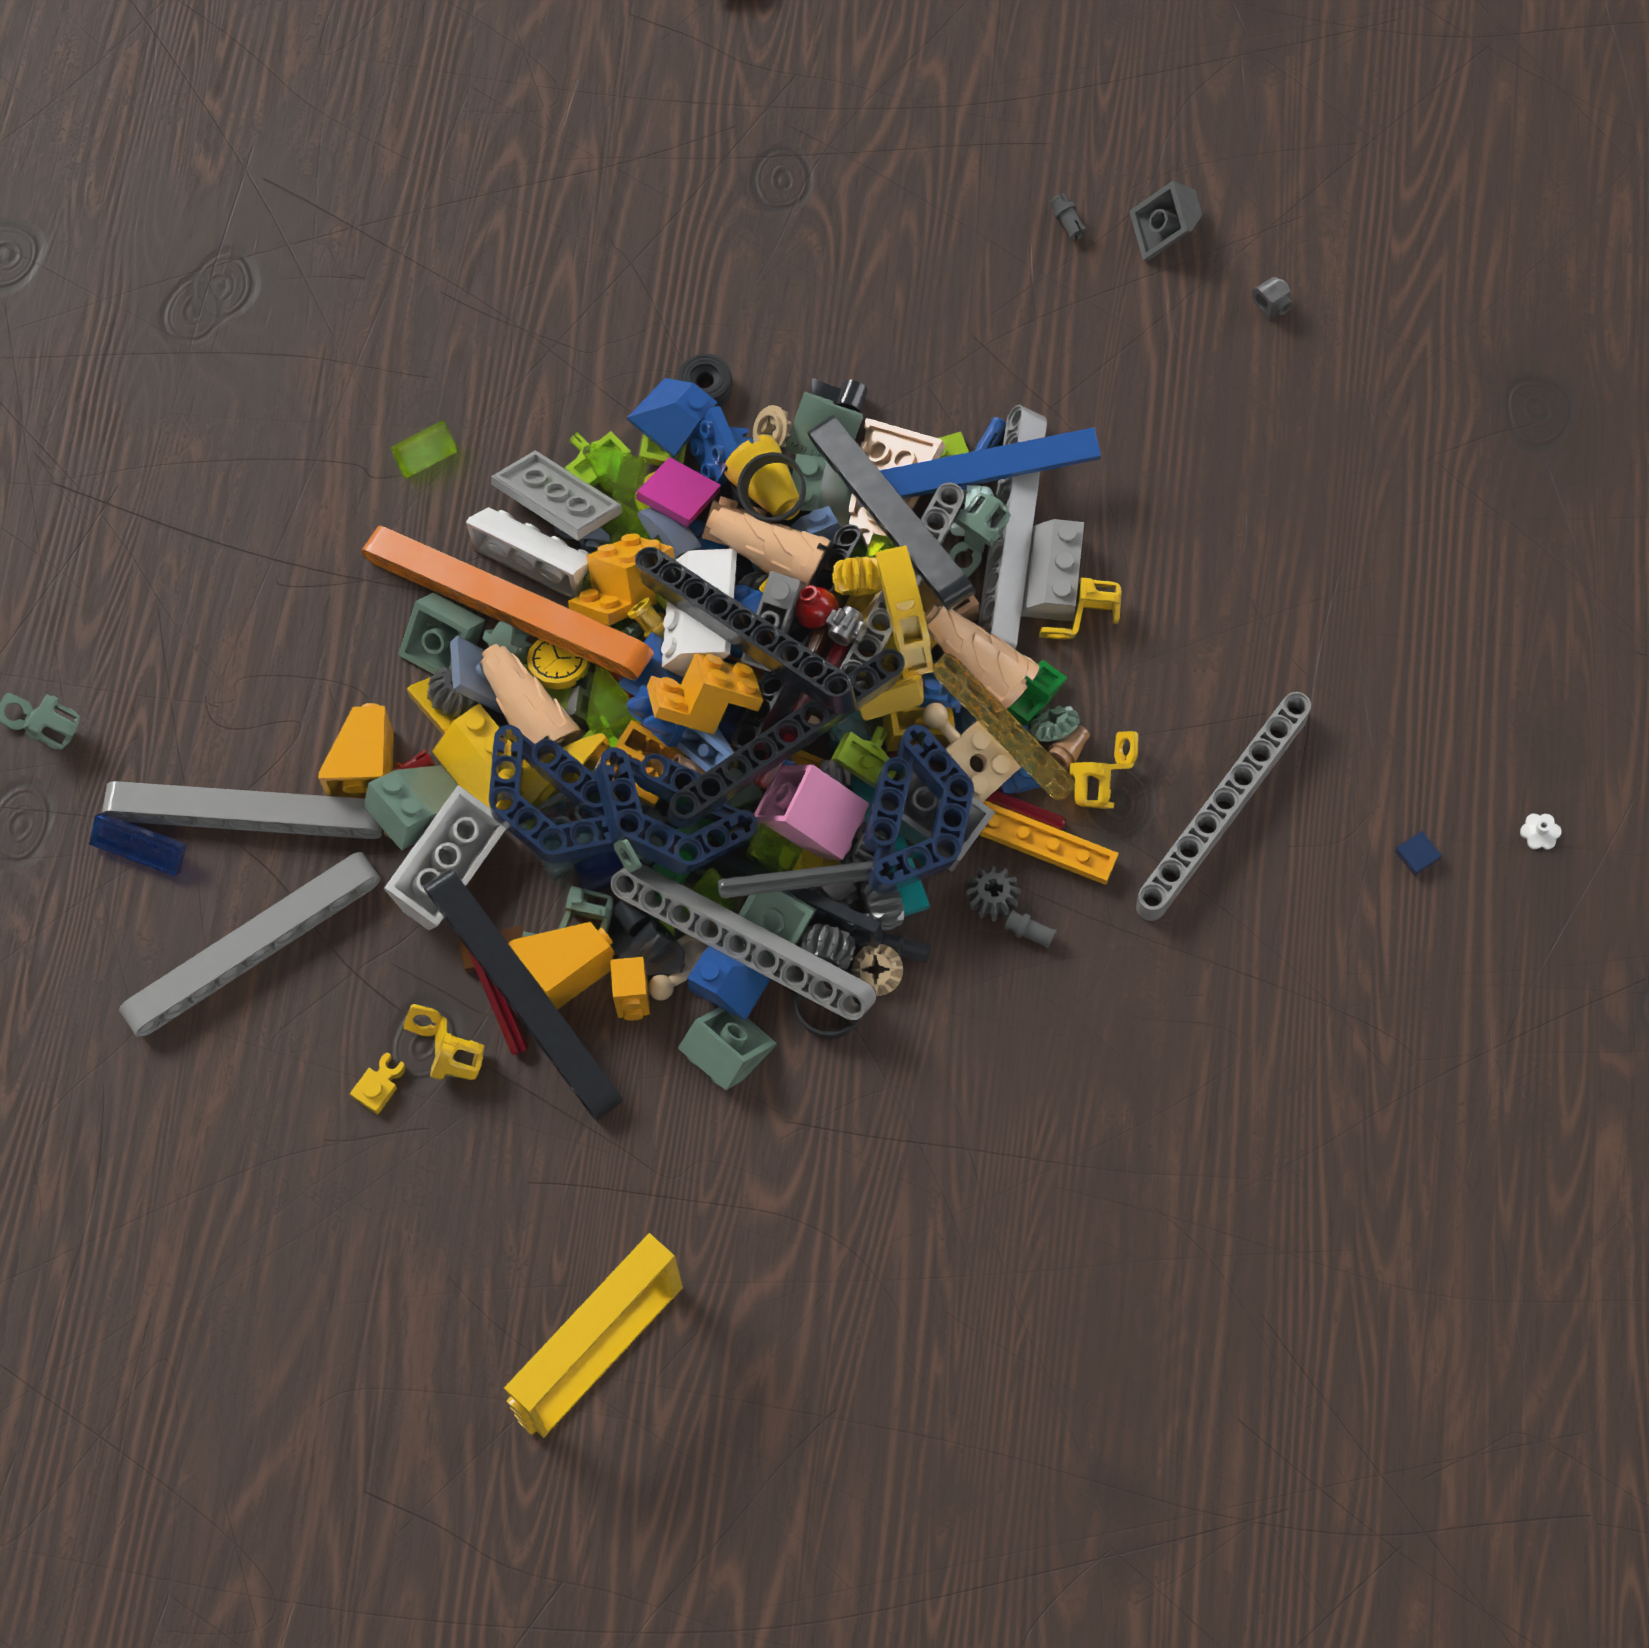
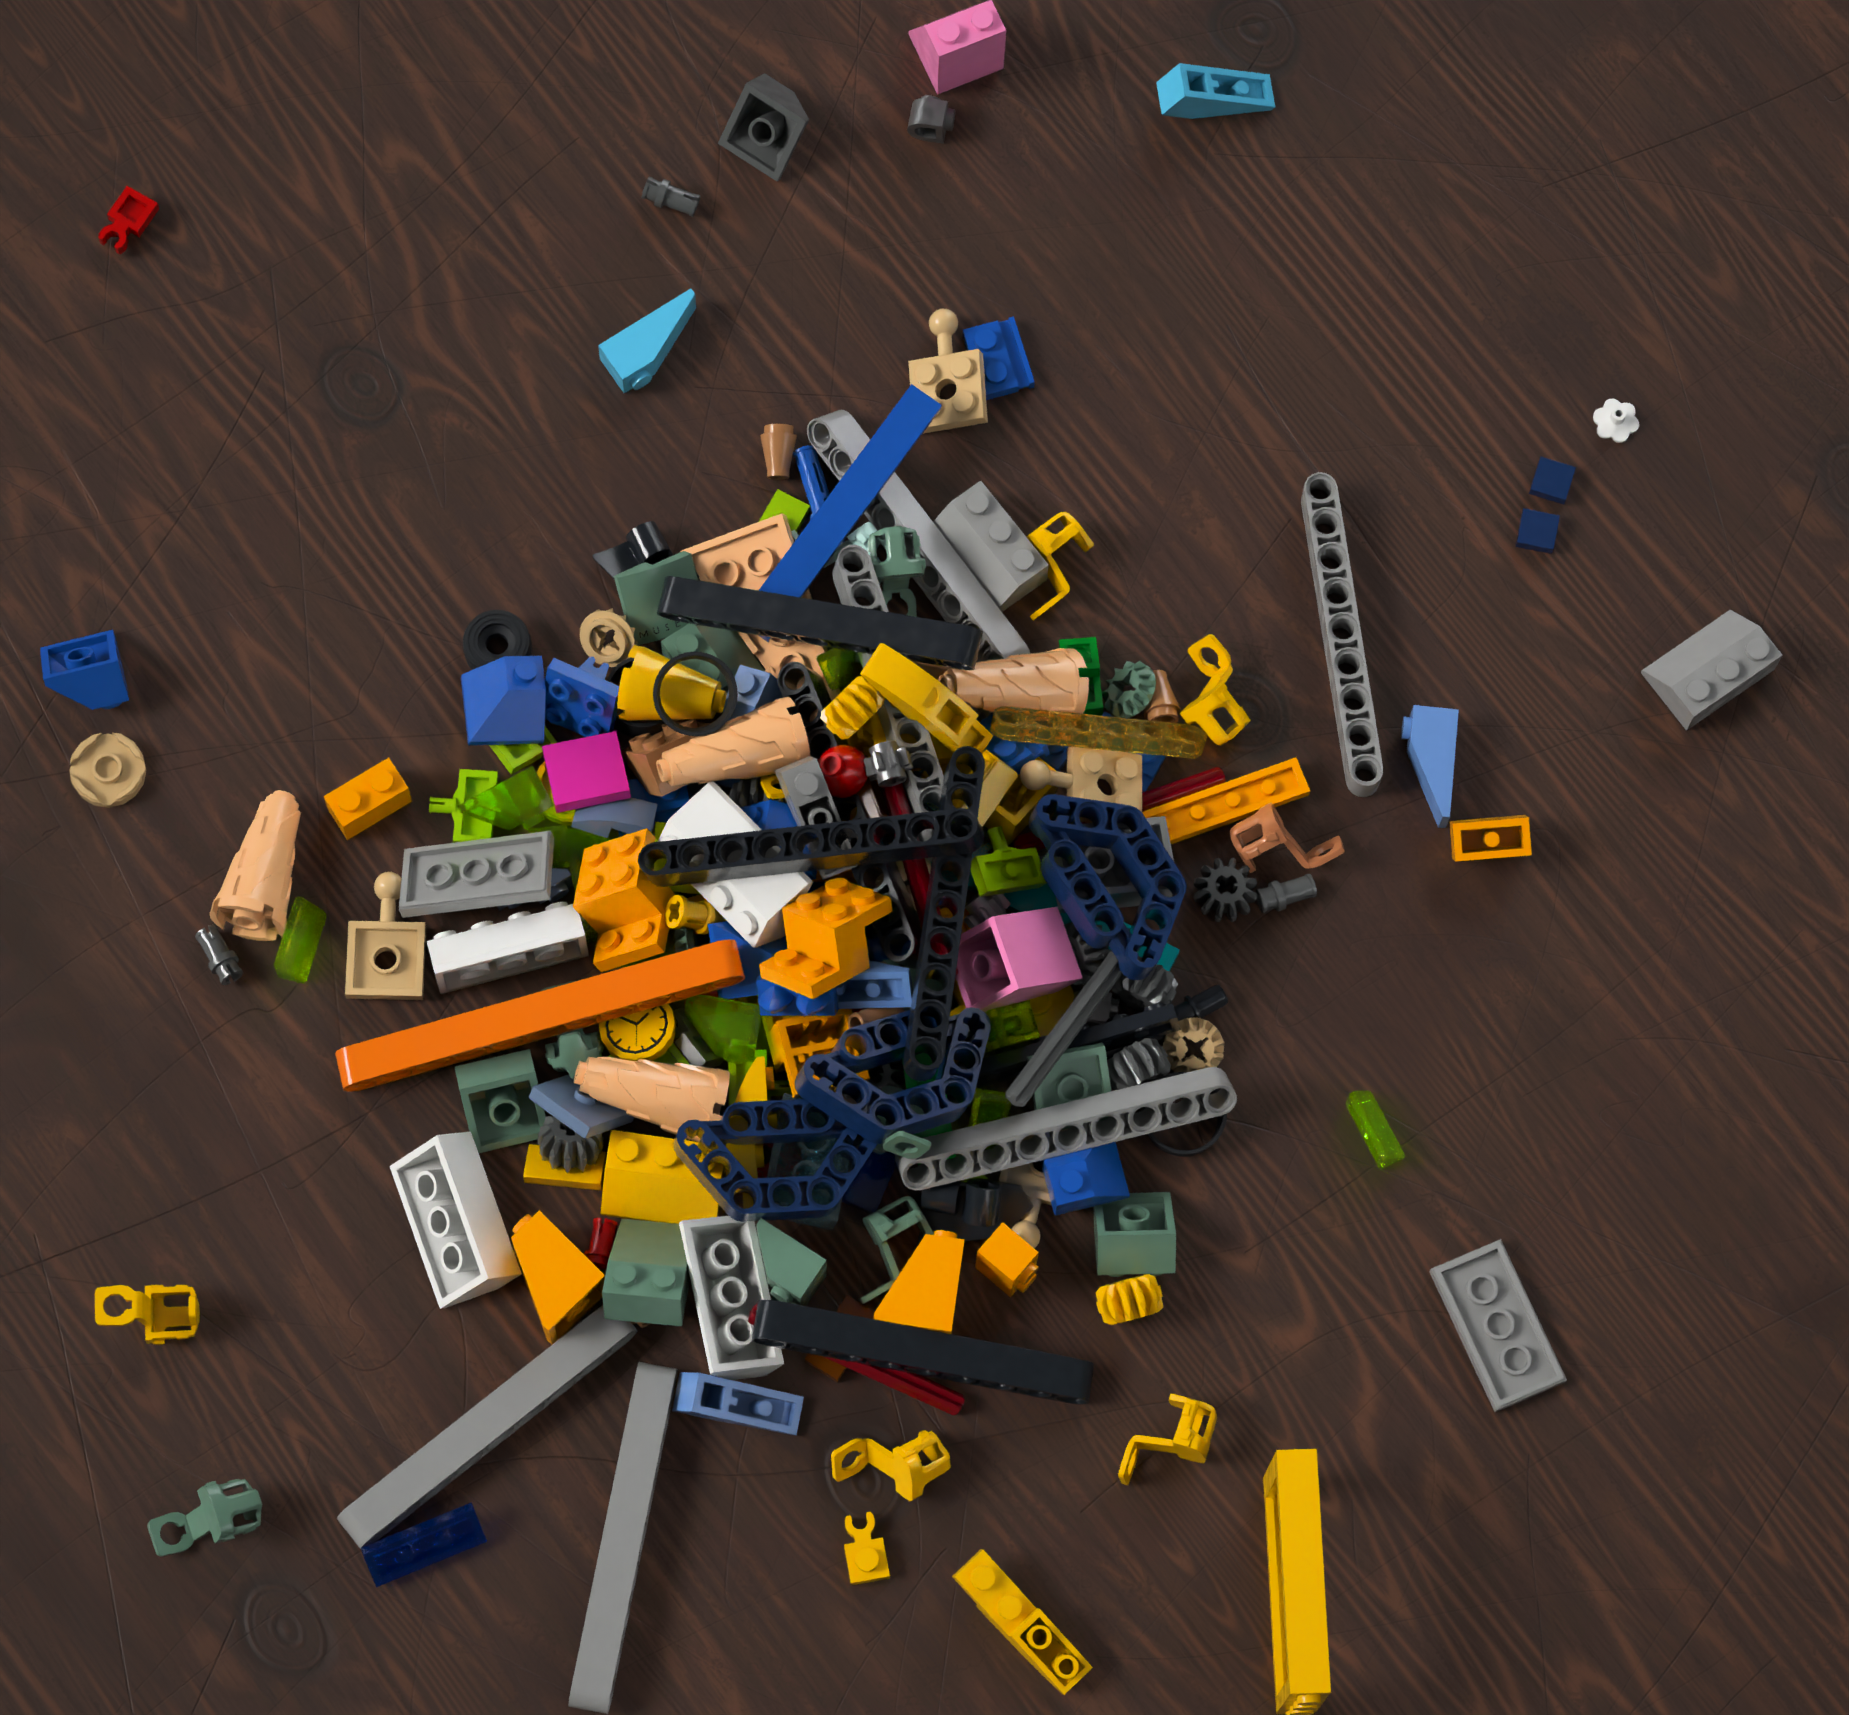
camera: 50 degrees left, 5 degrees up
(128, 579) = (151, 1311): none -> yellow piece
(347, 675) = (455, 1219): none -> white slope
(371, 423) = (222, 960): none -> dark grey pin
(393, 929) = (737, 1403): none -> medium blue slope
(420, 269) = (107, 769): none -> tan tile
(422, 1210) = (1022, 1622): none -> yellow slope
(438, 391) = (260, 874): none -> light nougat cone
(462, 204) = (86, 670): none -> blue slope
(463, 483) = (371, 938): none -> tan plate
(496, 875) = (789, 1266): none -> sand green slope
(542, 403) = (368, 798): none -> light orange brick
(624, 1191) = (1186, 1442): none -> yellow piece
(680, 1079) = (1129, 1299): none -> yellow gear
(896, 1311) = (1497, 1325): none -> light grey tile
(942, 1119) = (1374, 1128): none -> clear neon green slope
(965, 286) = (641, 348): none -> medium azure slope
(987, 405) = (778, 449): none -> medium nougat cone
(1056, 879) = (1271, 826): none -> nougat piece
(1141, 454) = (961, 368): none -> tan plate
(1174, 468) = (1003, 355): none -> blue plate
(1192, 1007) = (1490, 838): none -> light orange brick
(1215, 921) = (1431, 750): none -> medium blue slope
(1332, 266) = (961, 46): none -> bright pink slope
(1449, 1035) = (1712, 667): none -> light grey slope
(1459, 831) = (1552, 480): none -> dark blue tile
(1470, 421) = (1211, 92): none -> medium azure slope

